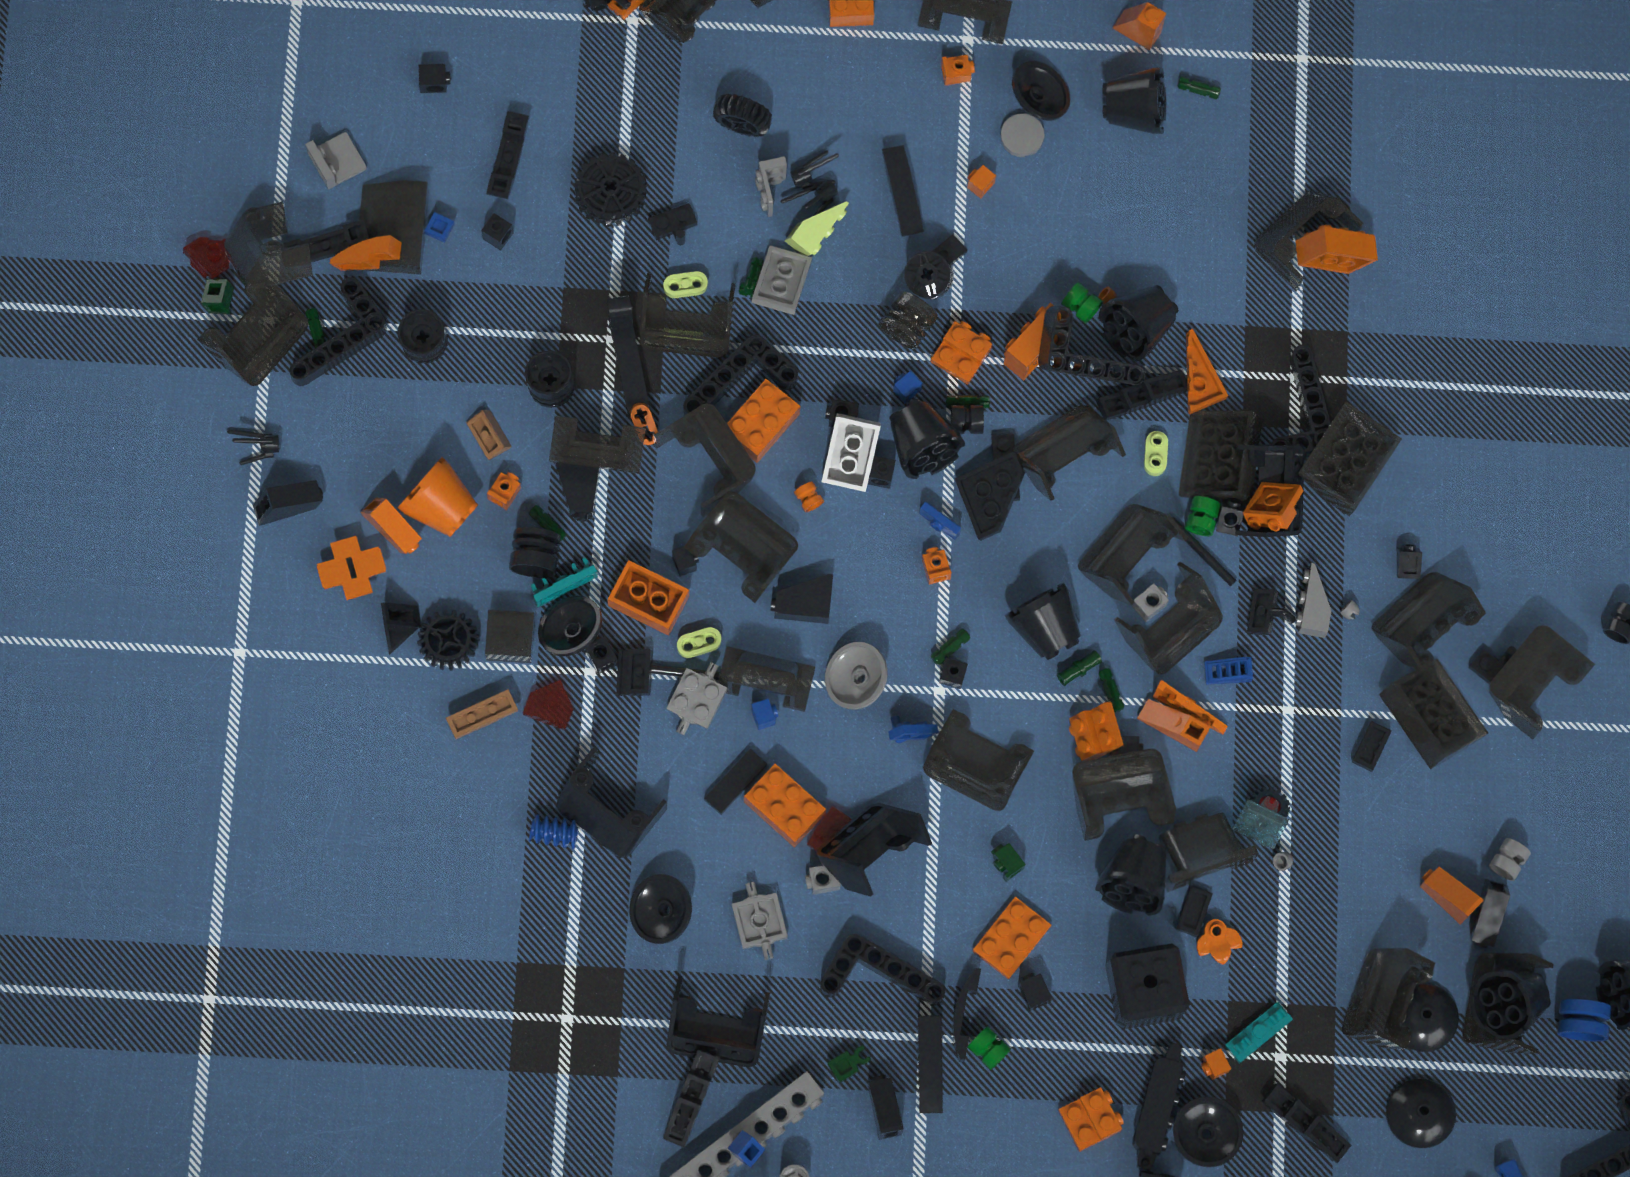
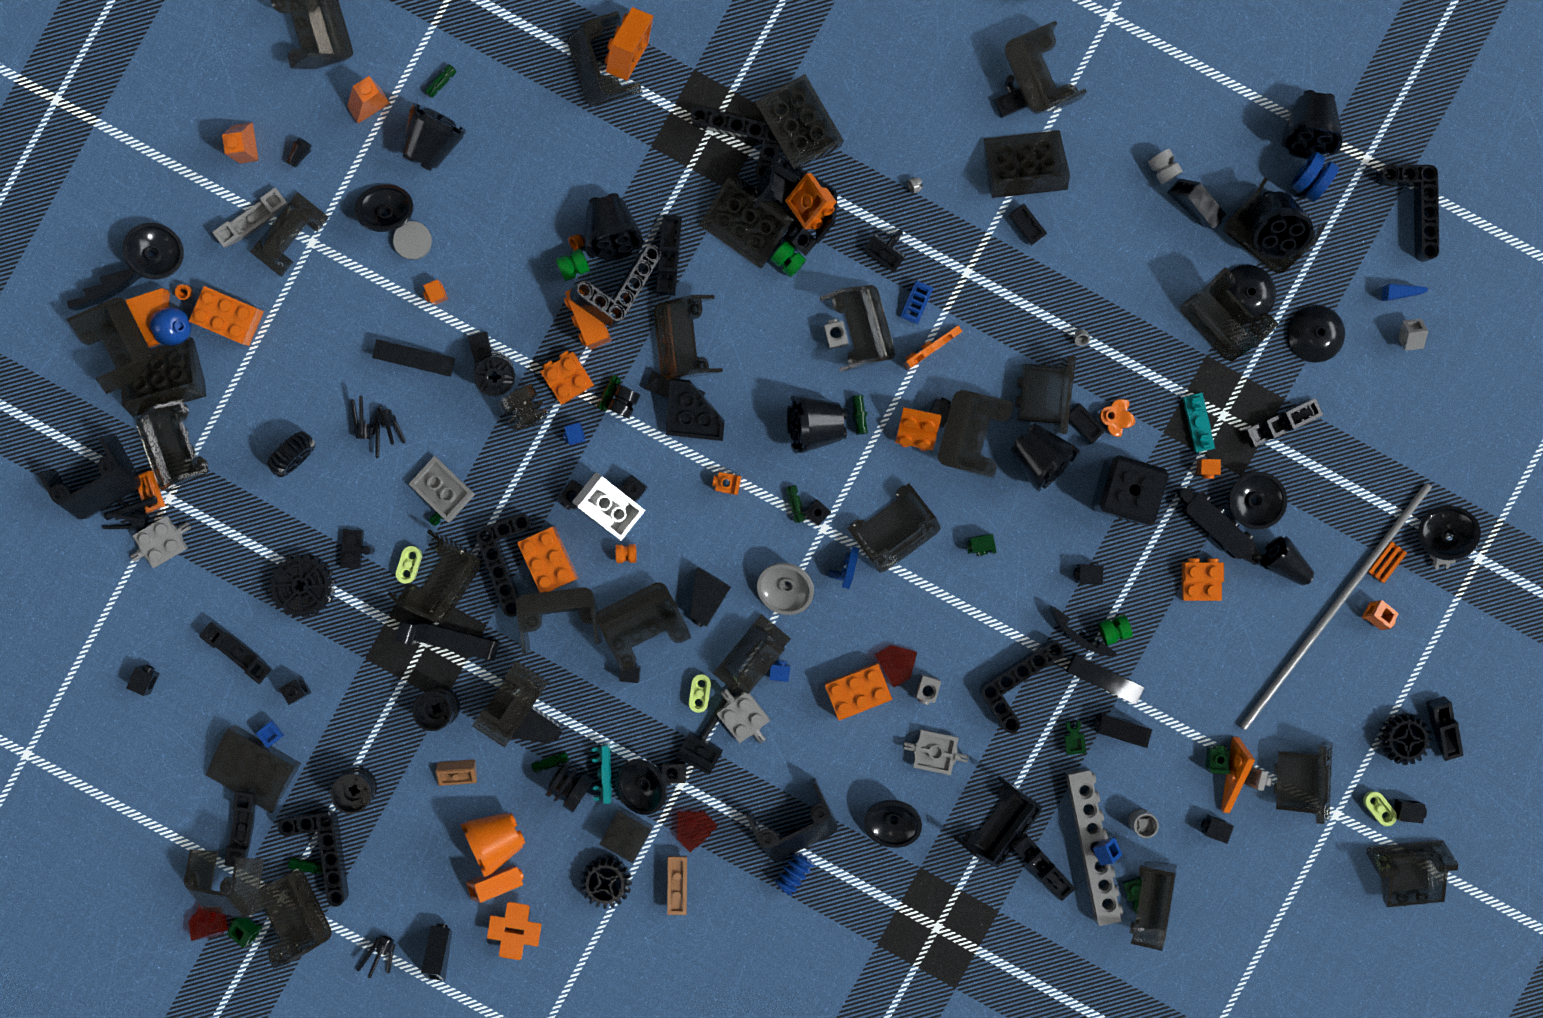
camera: 55 degrees left, 15 degrees up
(336, 160) = (174, 788): light grey bracket -> none
(368, 254) = (265, 801): orange slope -> none
(399, 623) = (574, 913): black slope -> none
(504, 497) = (514, 783): orange brick -> none
(584, 31) = (160, 541): none -> light grey plate
(648, 421) = (506, 656): orange beam -> none
(648, 597) = (647, 716): orange brick -> none
(735, 781) = (820, 717): black tile -> none
(753, 275) = (433, 515): dark green axle -> none
(772, 172) = (349, 453): light grey bracket -> none
(809, 233) = (413, 447): yellowish green slope -> none
(868, 838) = (915, 646): black windscreen -> none
(924, 439) = (624, 444): black cone -> none
(939, 521) = (694, 463): blue plate -> none
(953, 75) = (337, 270): orange brick -> none
(1012, 938) = (1039, 569): orange plate -> none
(1111, 689) = (889, 399): dark green axle -> none
(1123, 547) = (782, 333): clear smoke windscreen -> none
(1155, 452) = (719, 269): yellowish green plate -> none
(1174, 724) = (938, 365): orange slope -> none
(1202, 380) = (681, 203): orange wing -> none
(1207, 557) = (813, 274): black bar -> none
(1264, 817) = (1043, 334): clear light blue plate -> none
(1316, 610) = (902, 211): light grey slope -> none
(1409, 562) = (900, 119): black bracket -> none
(1425, 616) = (949, 131): clear smoke windscreen -> none
(1450, 894) = (1171, 225): orange slope -> none

